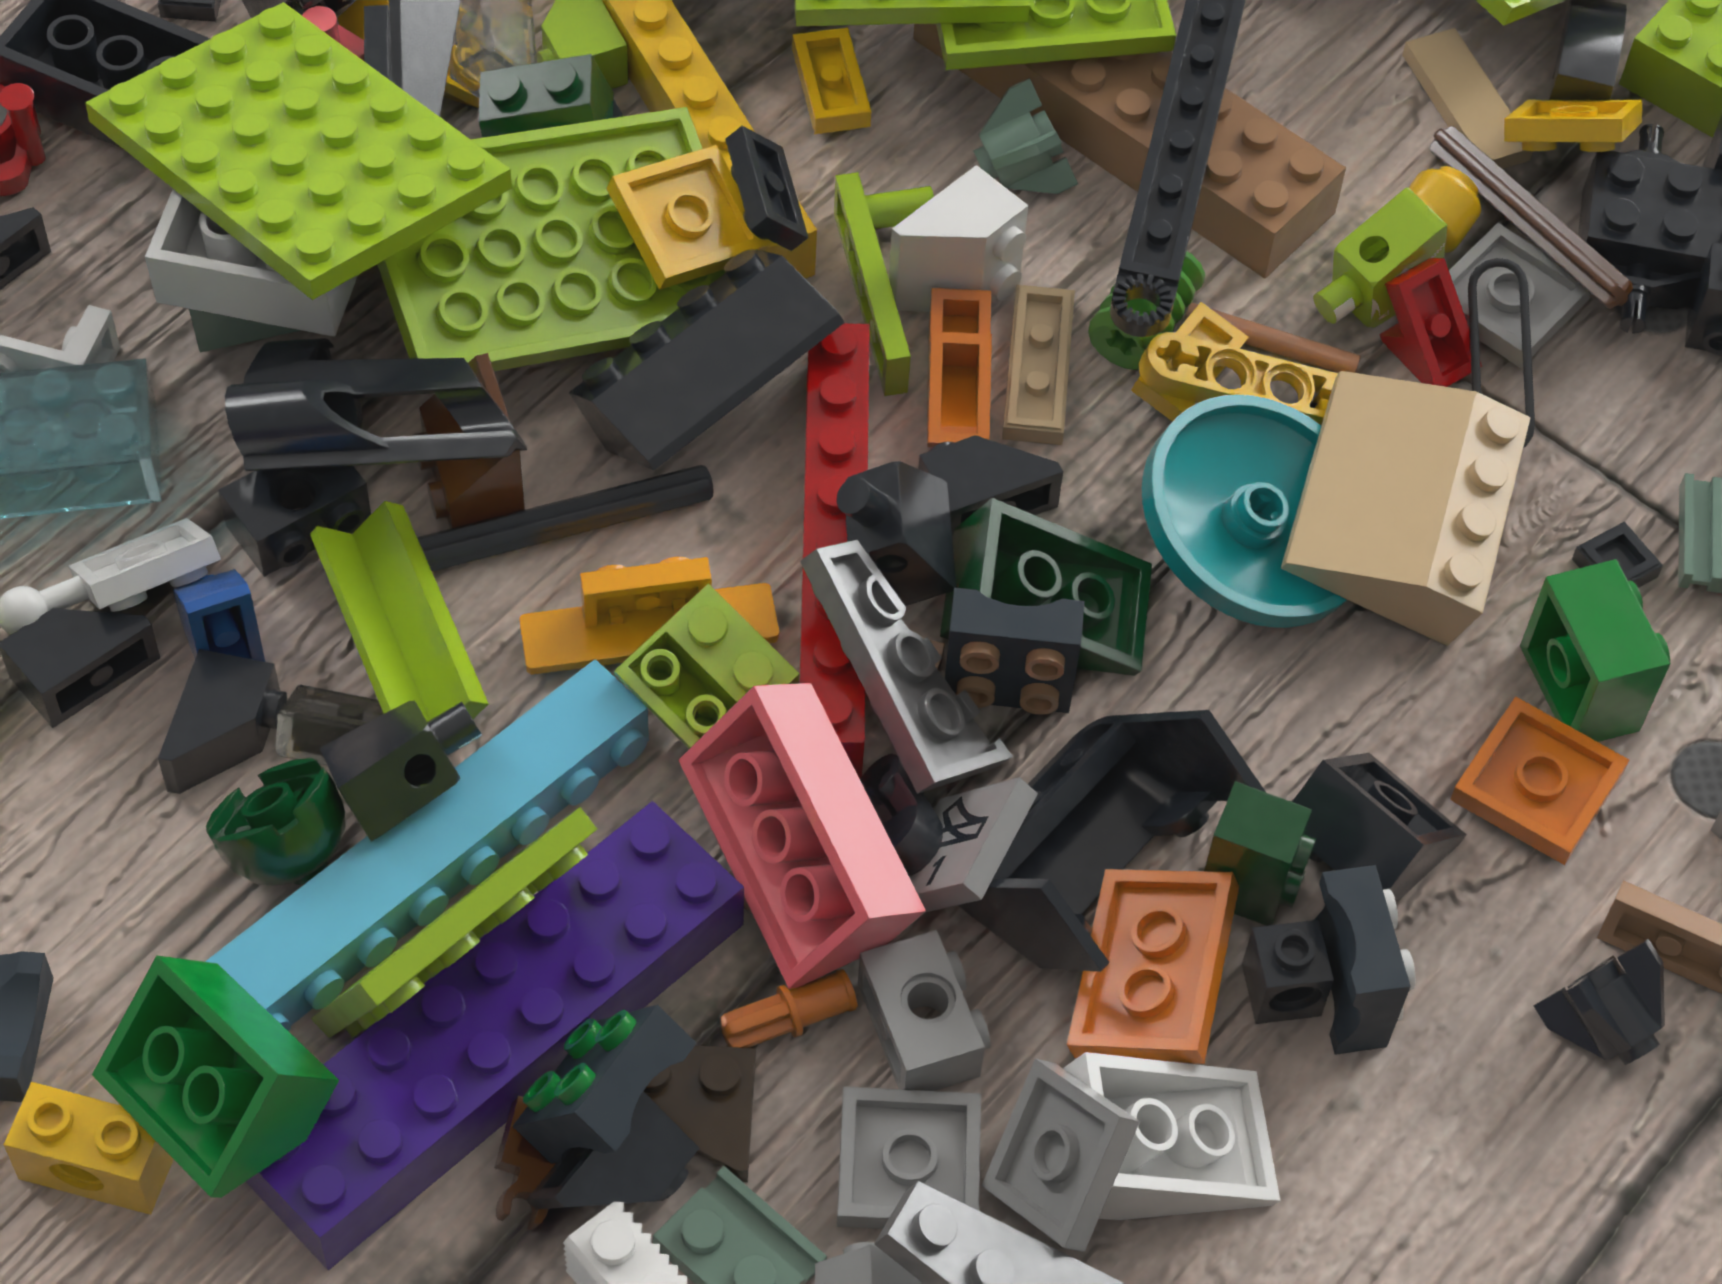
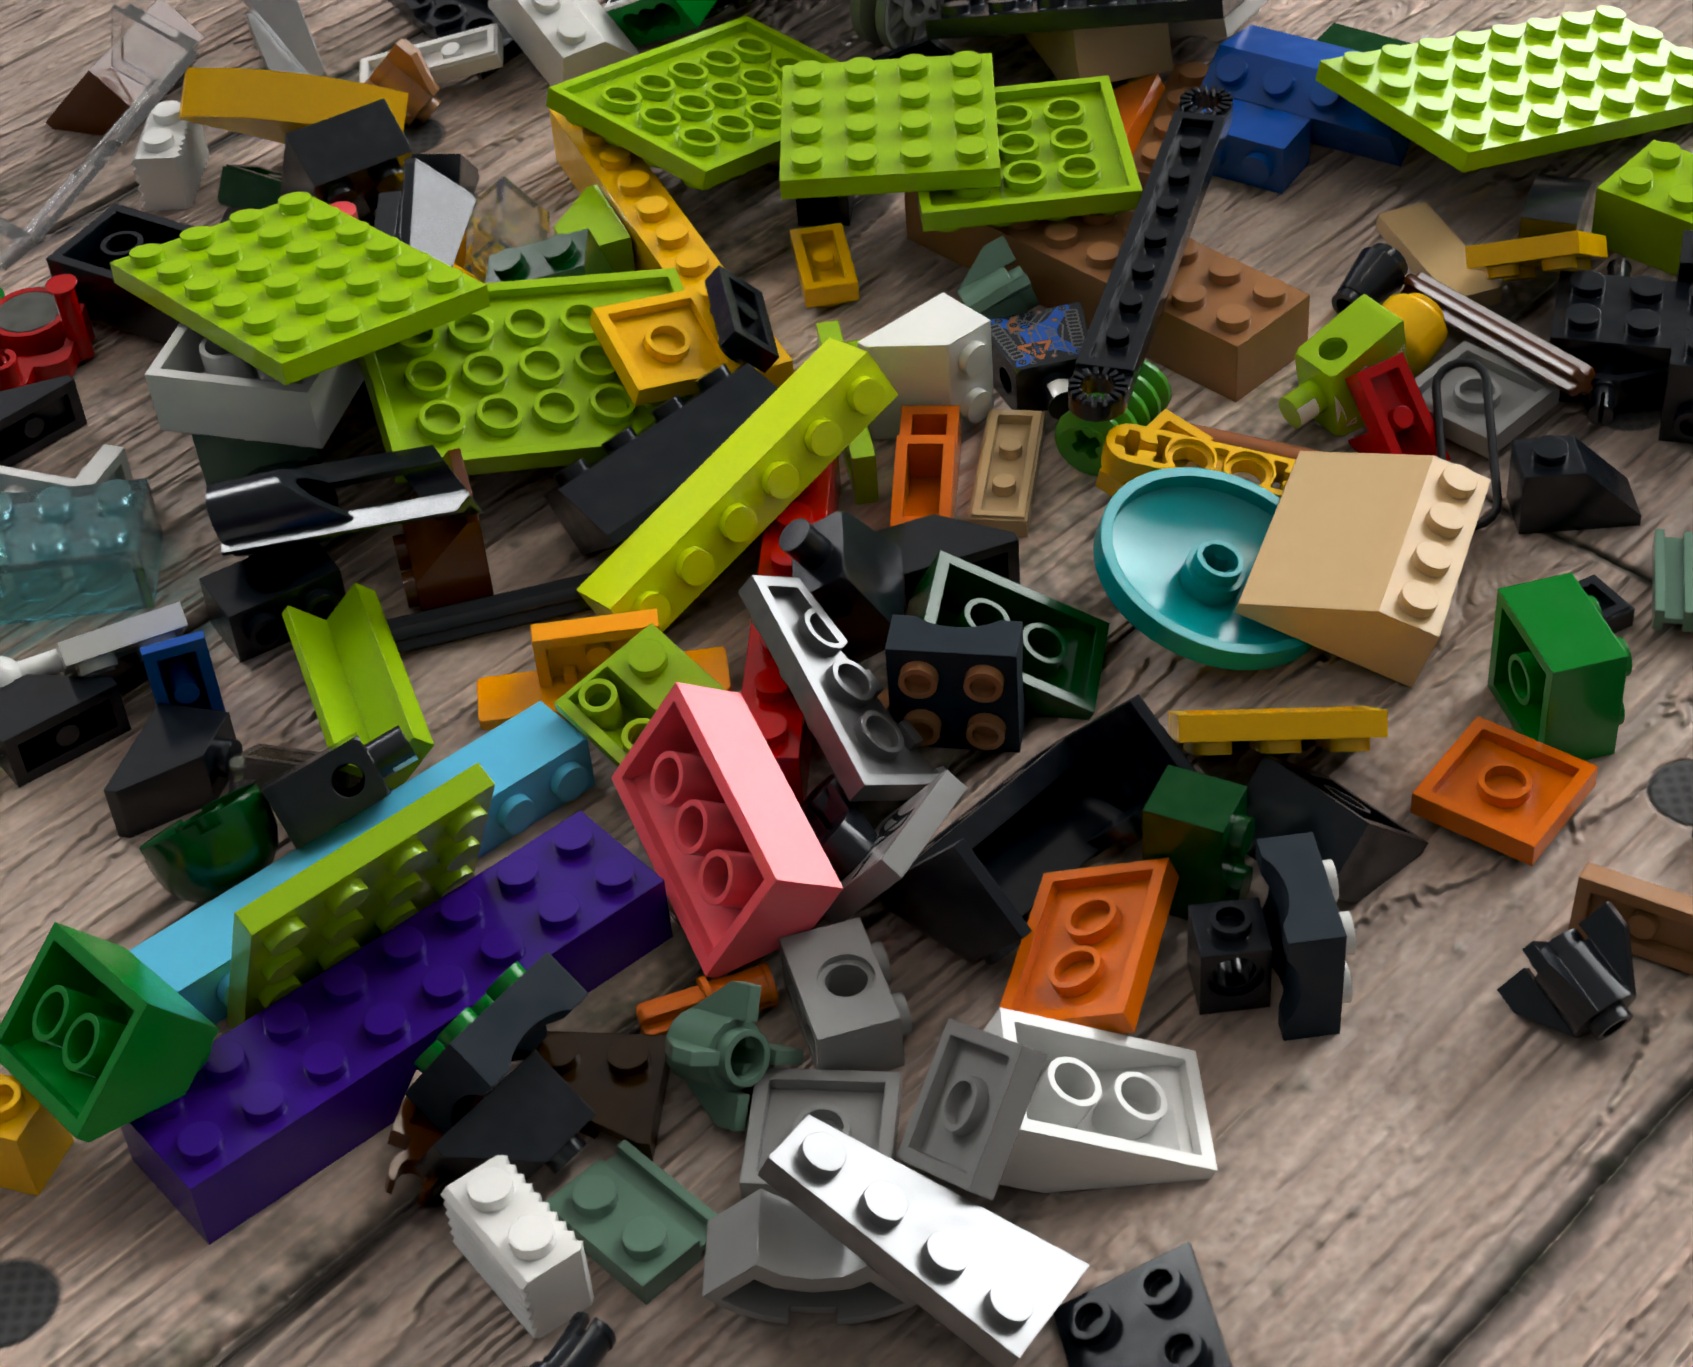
camera: 10 degrees right, 15 degrees down
(782, 411) = (742, 486): none -> neon yellow brick
(815, 1076) = (723, 1051): none -> sand green brick
(1073, 226) = (1037, 357): none -> black torso
(1328, 717) = (1278, 728): none -> yellow plate
(1400, 133) = (1375, 272): none -> black cone
(1598, 416) = (1566, 487): none -> black slope

